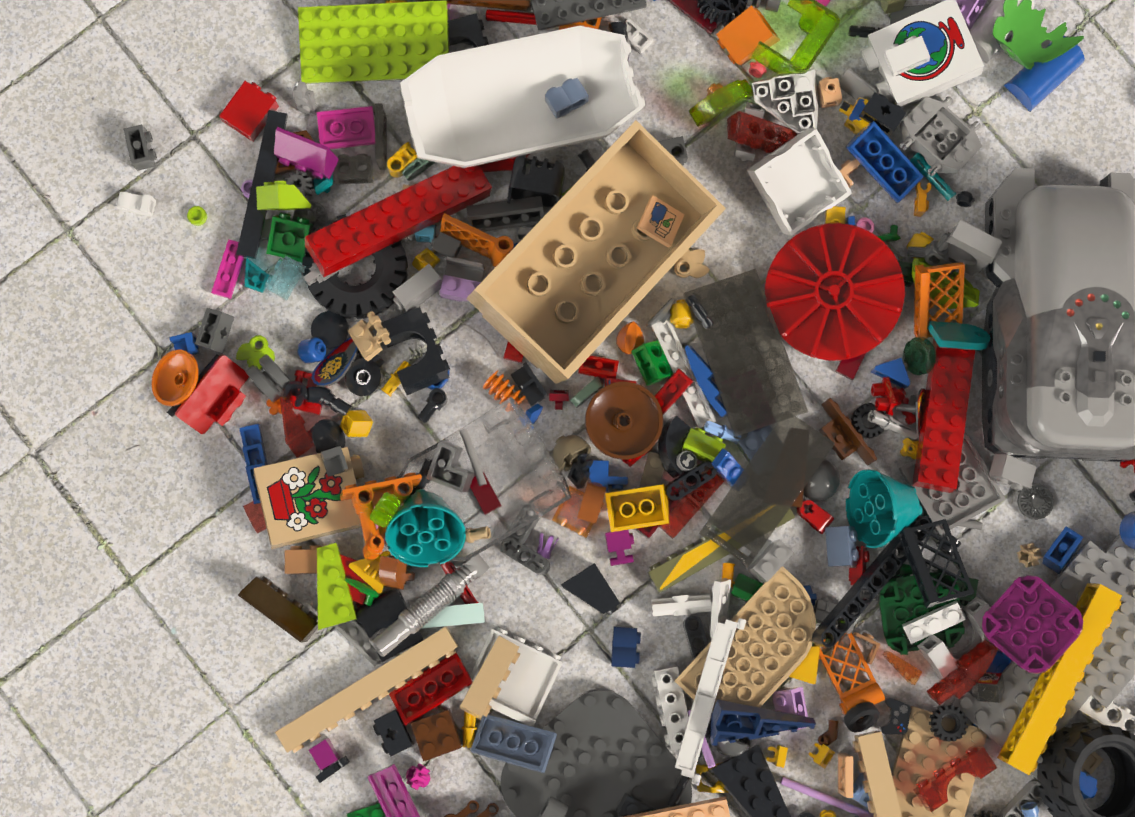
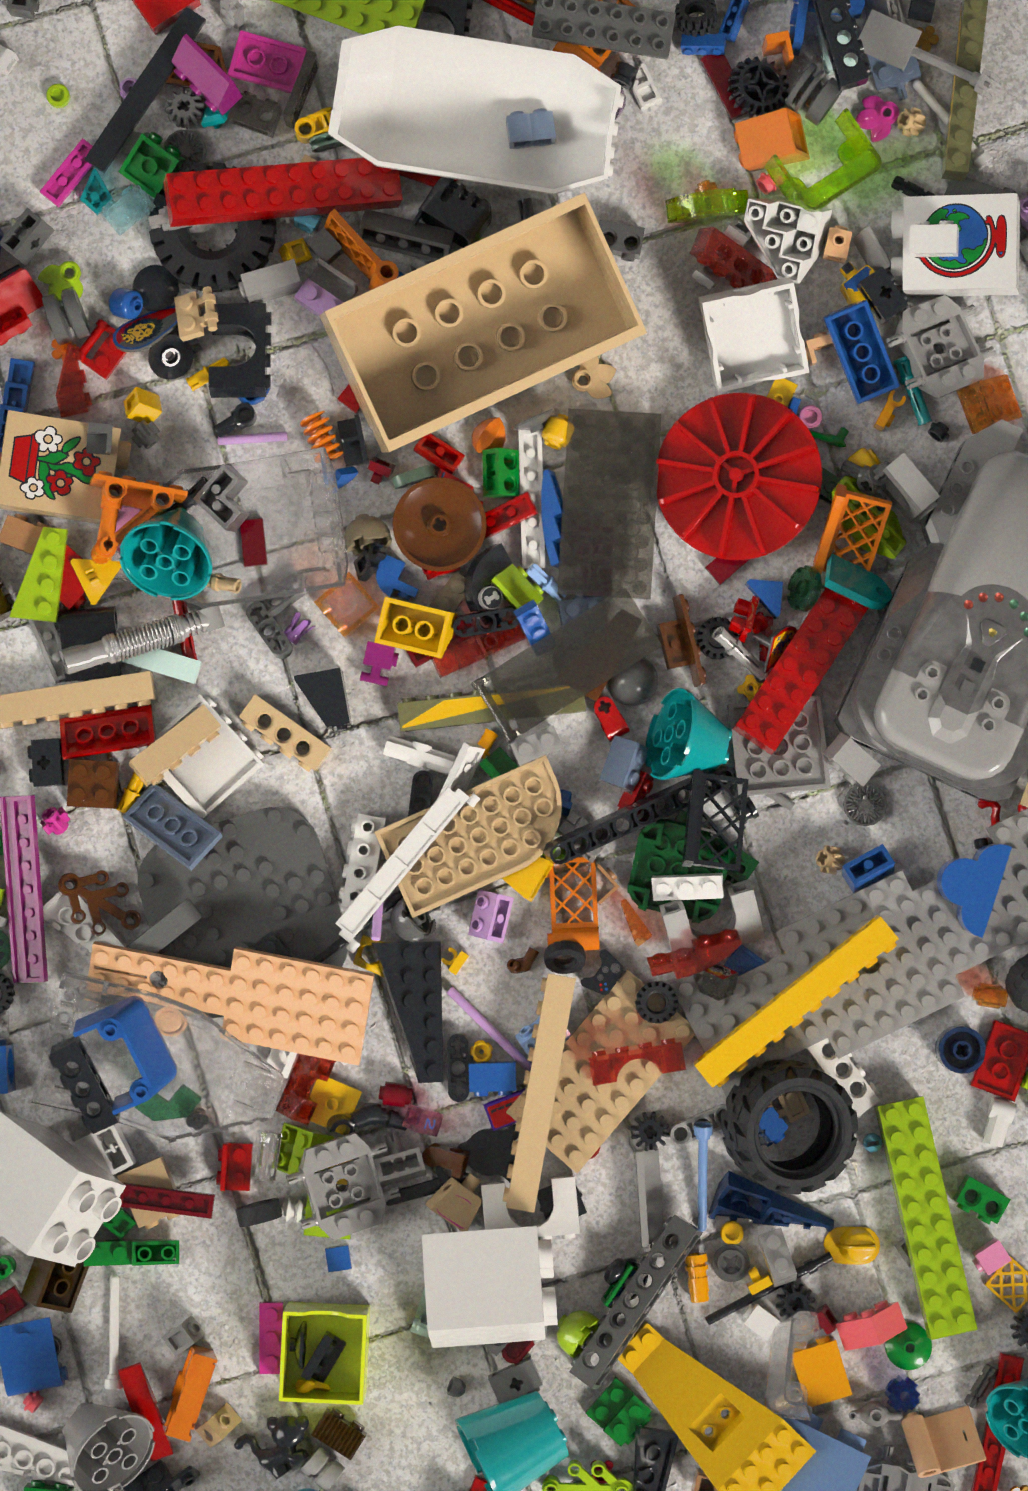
camera: 25 degrees right, 5 degrees up
(280, 196) = (158, 114): lime slope -> none
(317, 395) = (110, 356): black piece -> none
(327, 435) = (105, 407): black dish -> none
(363, 588) = (77, 592): green bar -> none
(367, 444) = (145, 434): none -> dark grey gear
(385, 509) = (132, 514): clear neon green gear -> none
(393, 572) = (116, 588): dark orange brick -> none
(451, 413) = (253, 438): none -> lavender bar
(473, 457) = (255, 496): light grey bar -> none
(591, 502) = (365, 599): dark orange brick -> none
(601, 633) = (258, 707): none -> tan brick
(624, 647) = (337, 775): dark blue brick -> none
(660, 221) = (574, 316): light nougat tile -> none
(699, 311) = (576, 436): black axle -> none
(738, 721) = (426, 903): dark blue wedge -> none
(824, 755) = (505, 982): yellow tile -> none
(845, 775) = (519, 1010): light nougat tile -> none
(992, 164) = (989, 402): none -> clear orange bracket
(1032, 624) = (788, 930): magenta tile -> none

